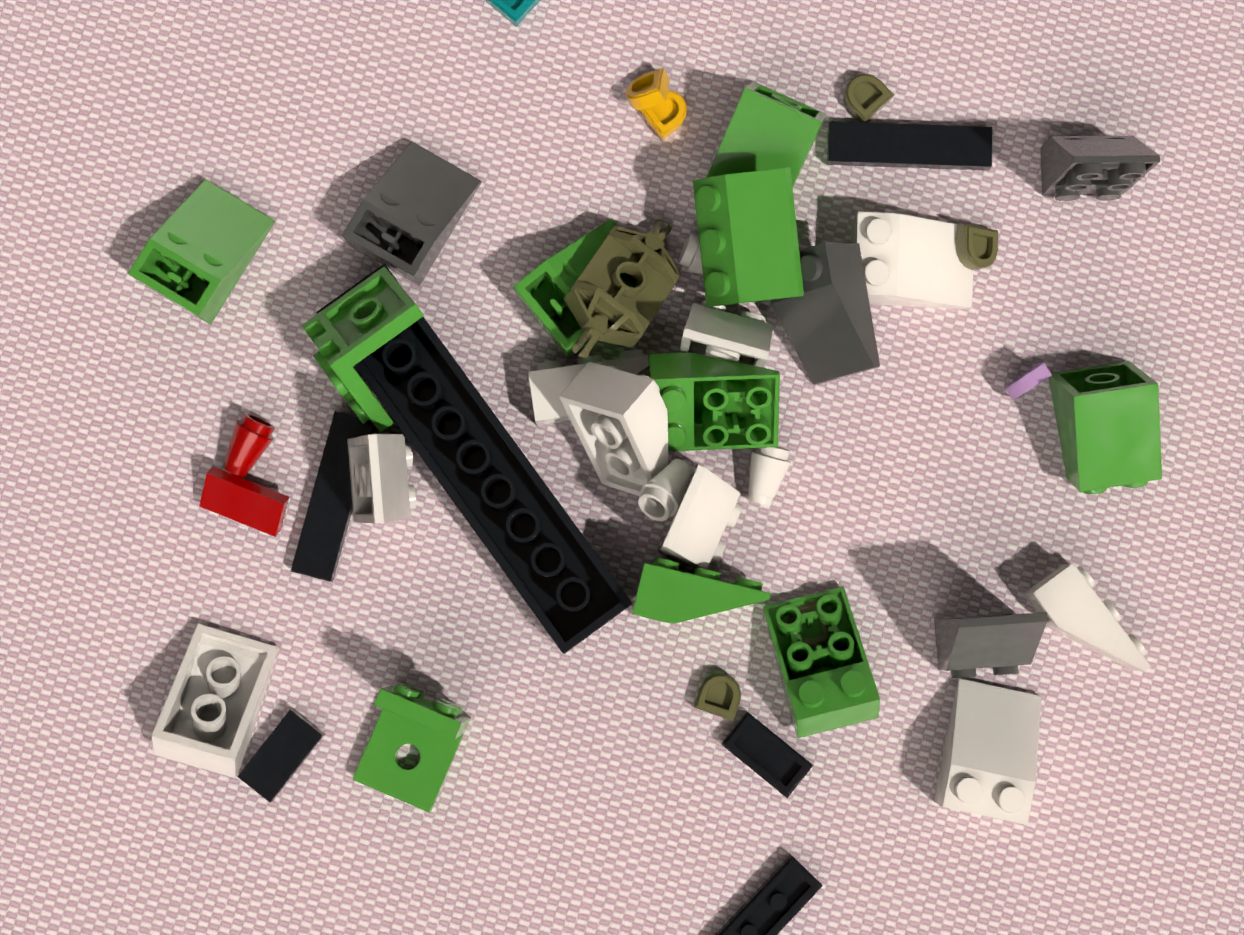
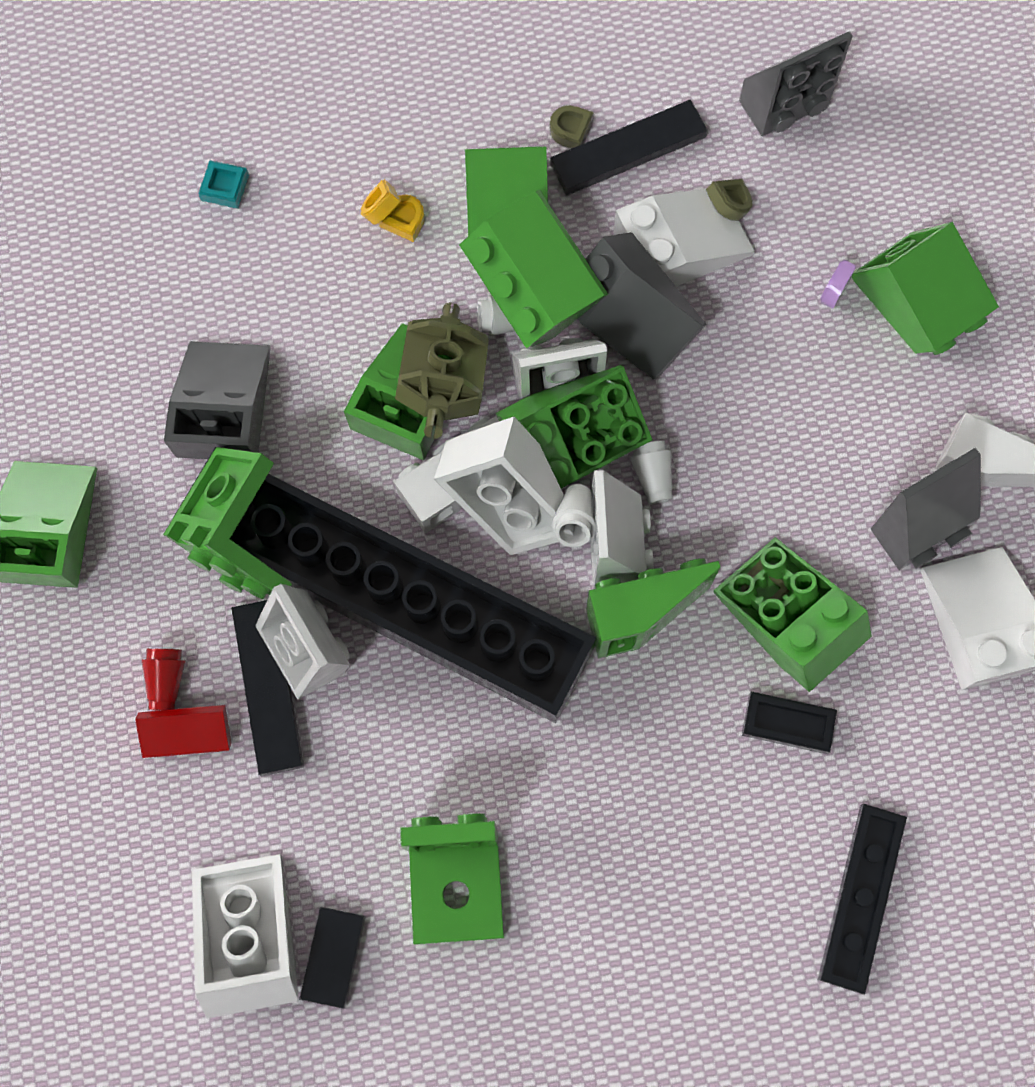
camera: 25 degrees left, 10 degrees down
(719, 696) = (717, 691): olive tile -> none

